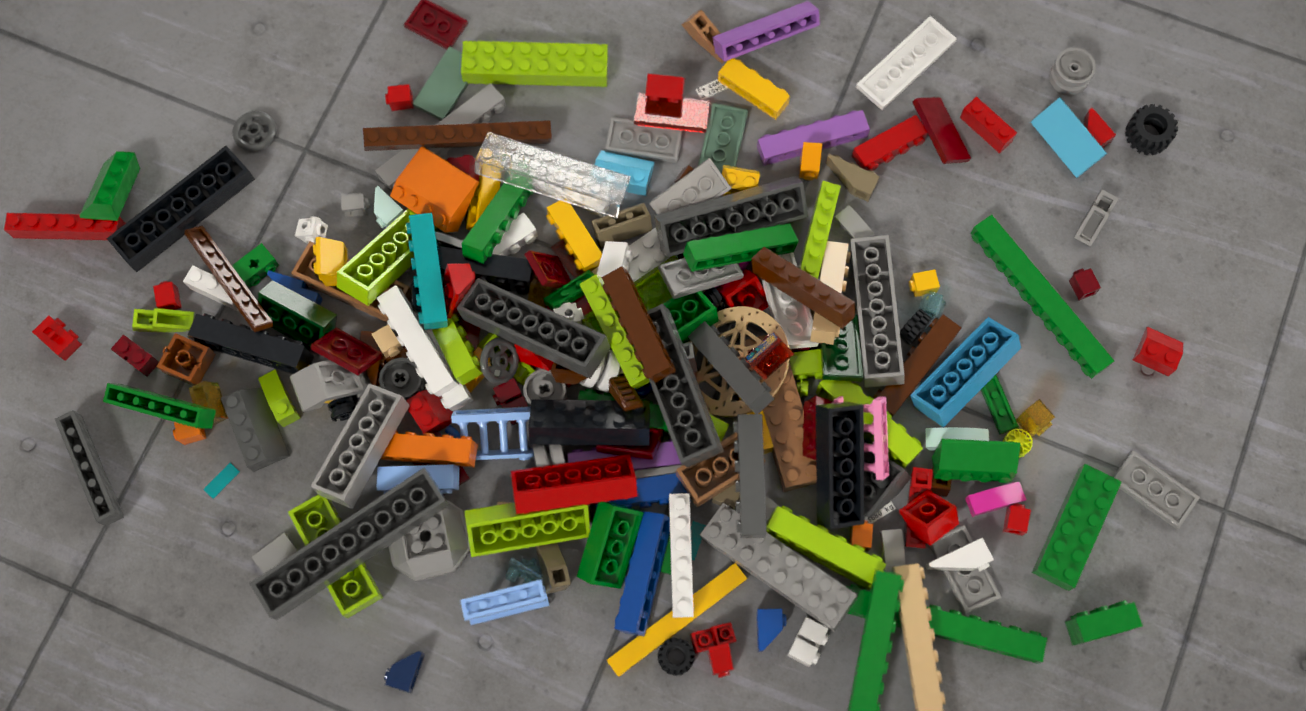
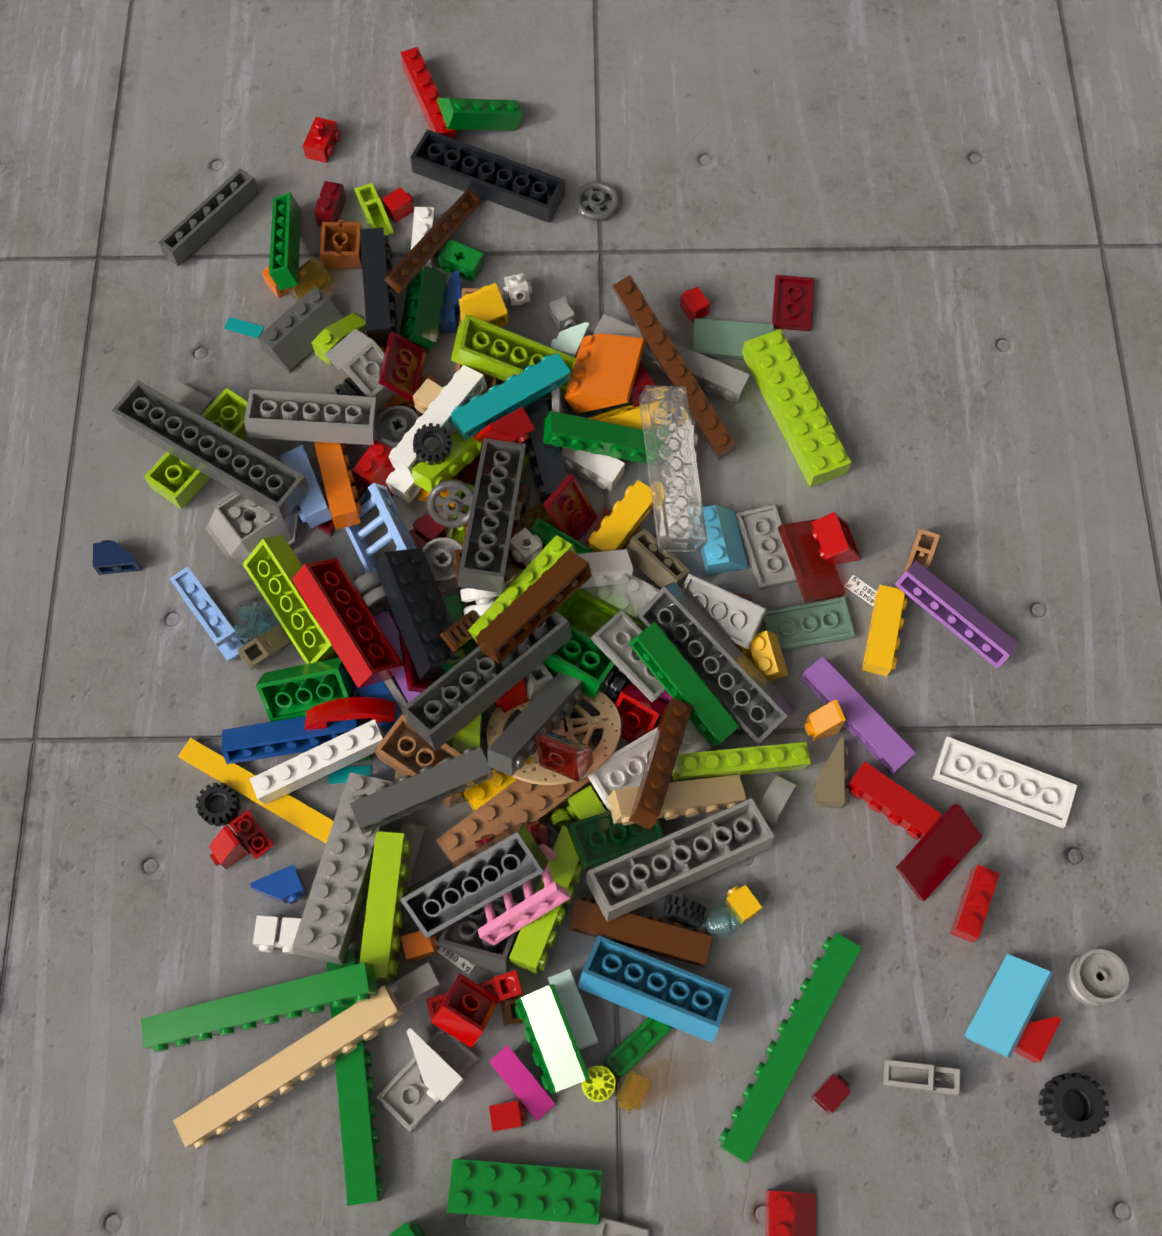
camera: 65 degrees right, 5 degrees down
(443, 362) = (436, 432): none -> black tyre
(647, 515) = (348, 709): none -> red slope

